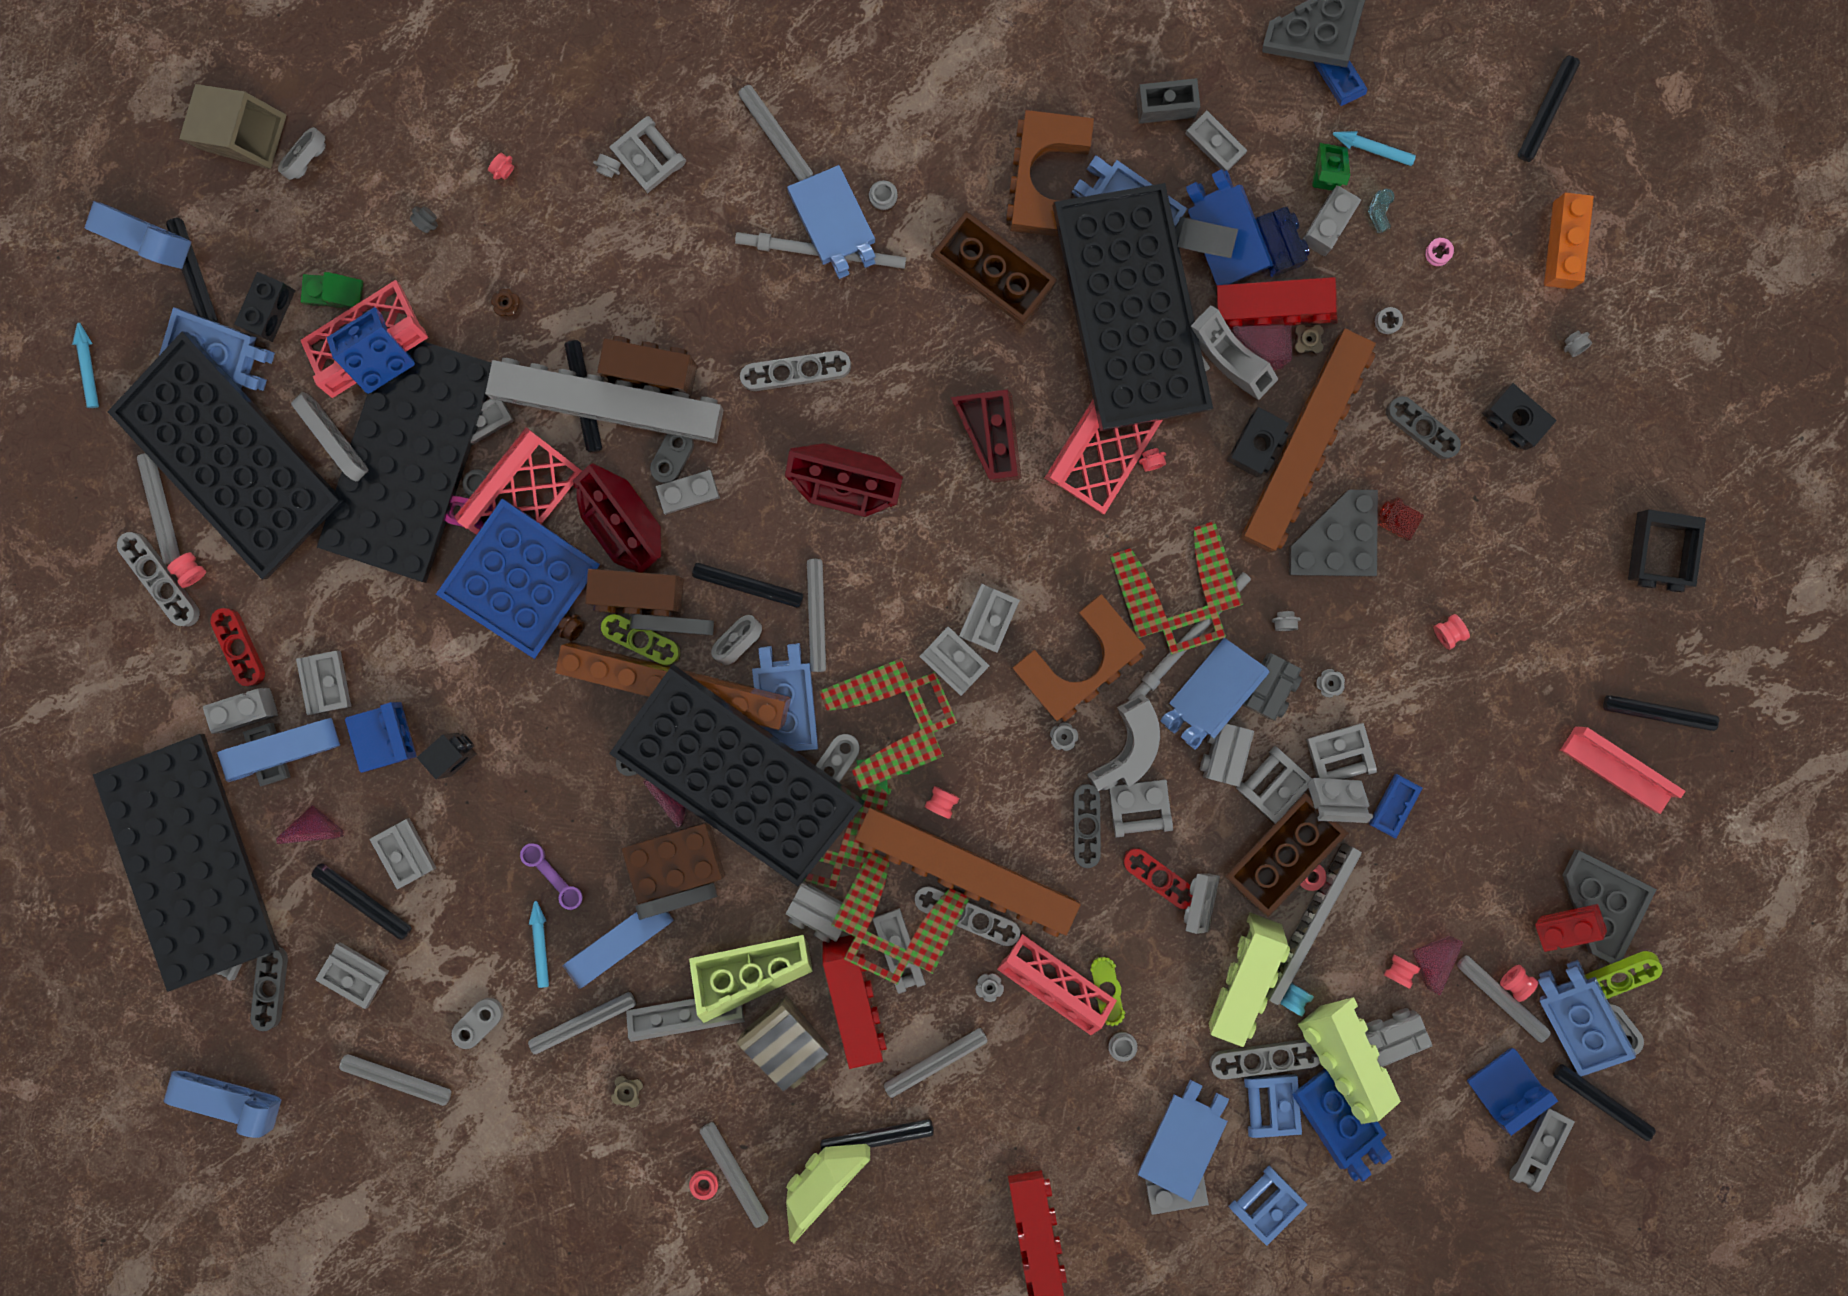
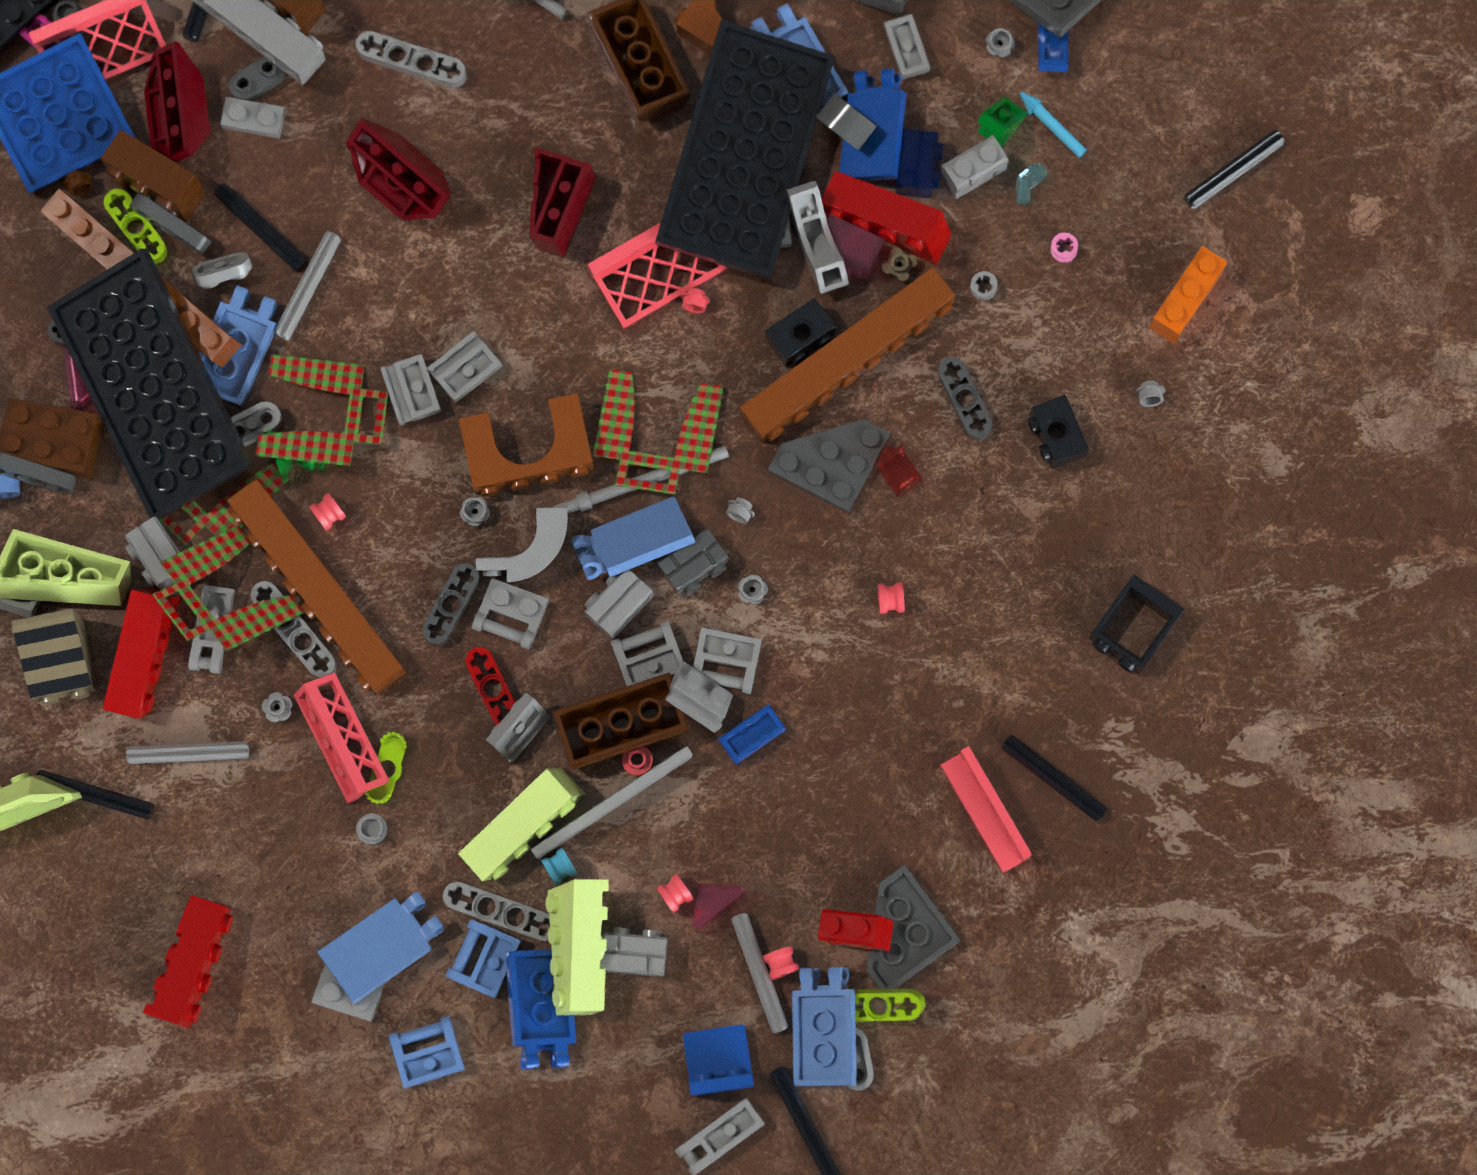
camera: 25 degrees right, 10 degrees down
(1299, 93) = (1000, 35): none -> light grey plate

